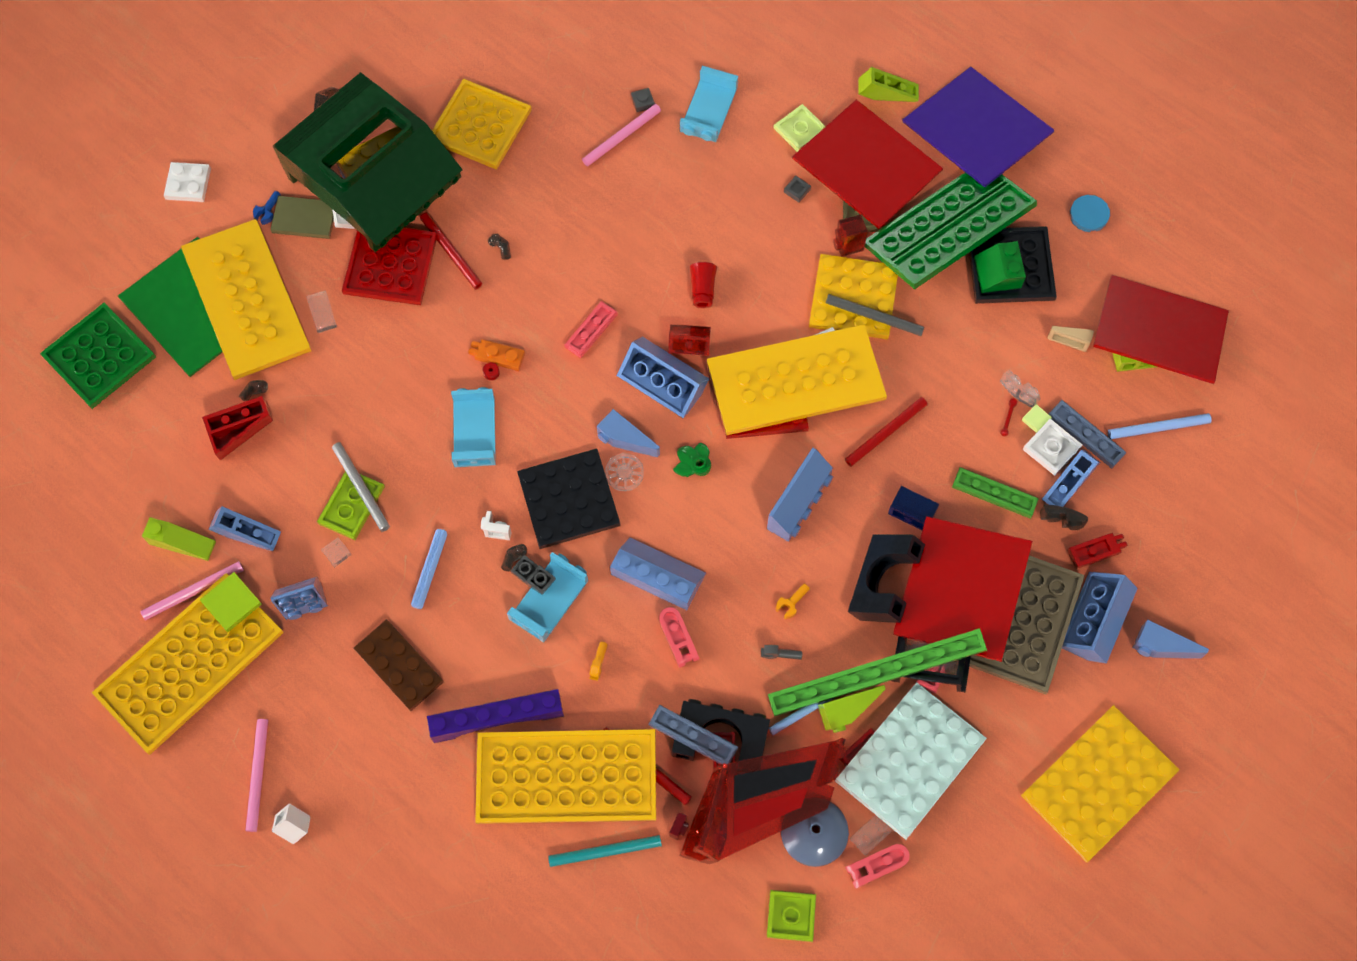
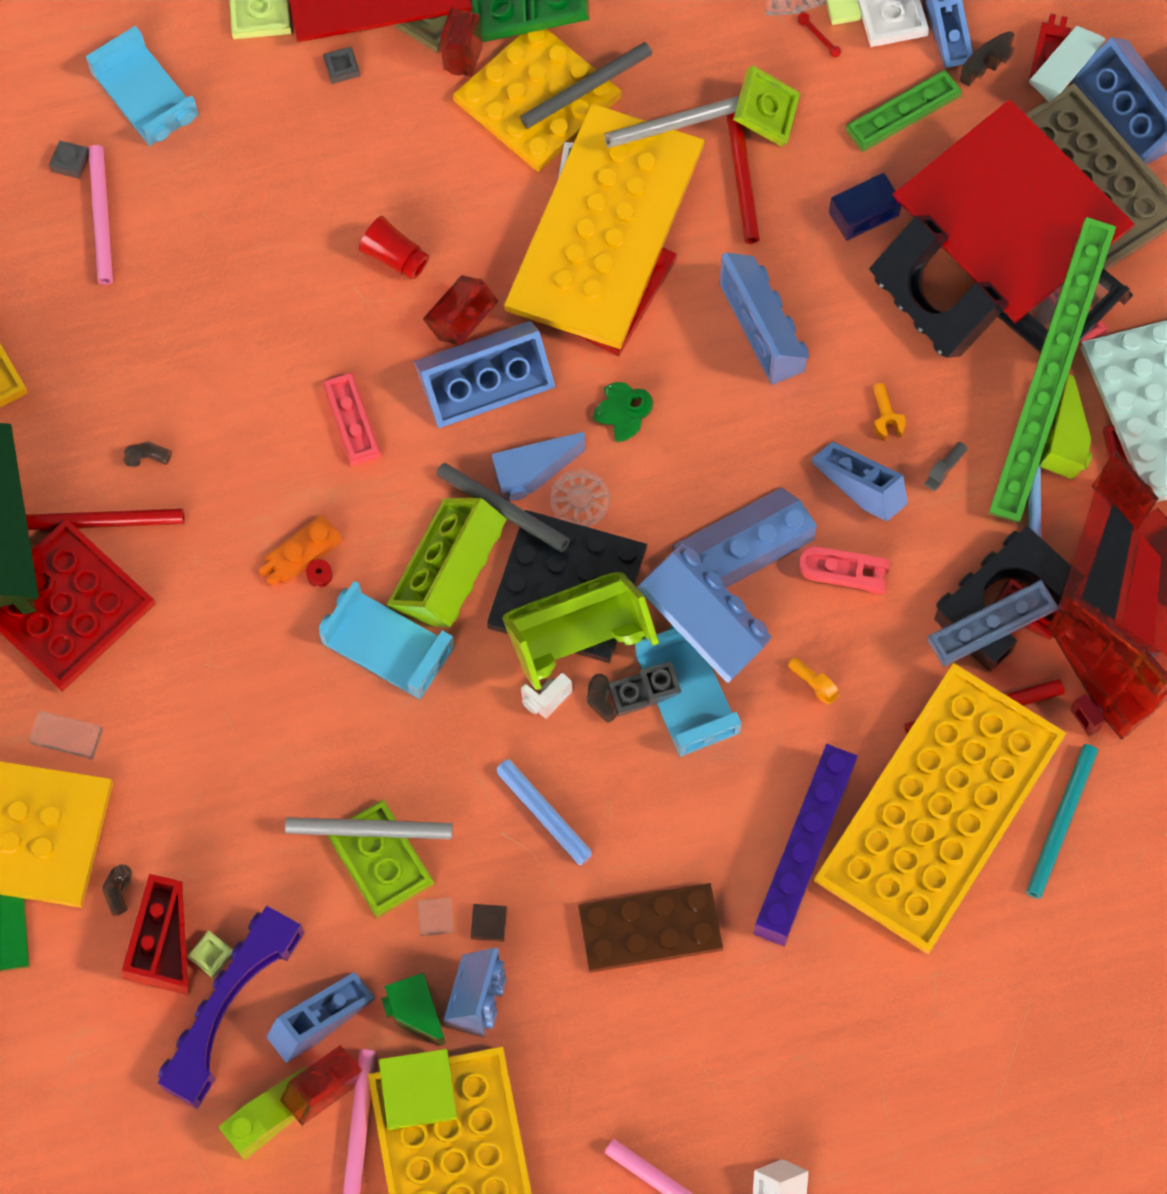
camera: 55 degrees left, 0 degrees up
(176, 486) = (270, 939): none -> dark purple arch
(203, 552) = (321, 1085): none -> clear red brick
(247, 456) = (210, 954): none -> yellowish green tile
(276, 572) = (413, 1008): none -> green slope
(349, 580) = (488, 922): none -> clear smoke tile
(538, 429) = (447, 561): none -> lime slope
(538, 509) = (577, 620): none -> lime windscreen
(588, 435) = (504, 507): none -> dark grey piece
(589, 574) = (705, 612): none -> medium blue slope
(738, 612) = (863, 480): none -> medium blue slope
(885, 373) = (671, 122): none -> light grey piece
(936, 416) = (766, 106): none -> lime tile
(1092, 561) = (1065, 62): none -> light aqua slope

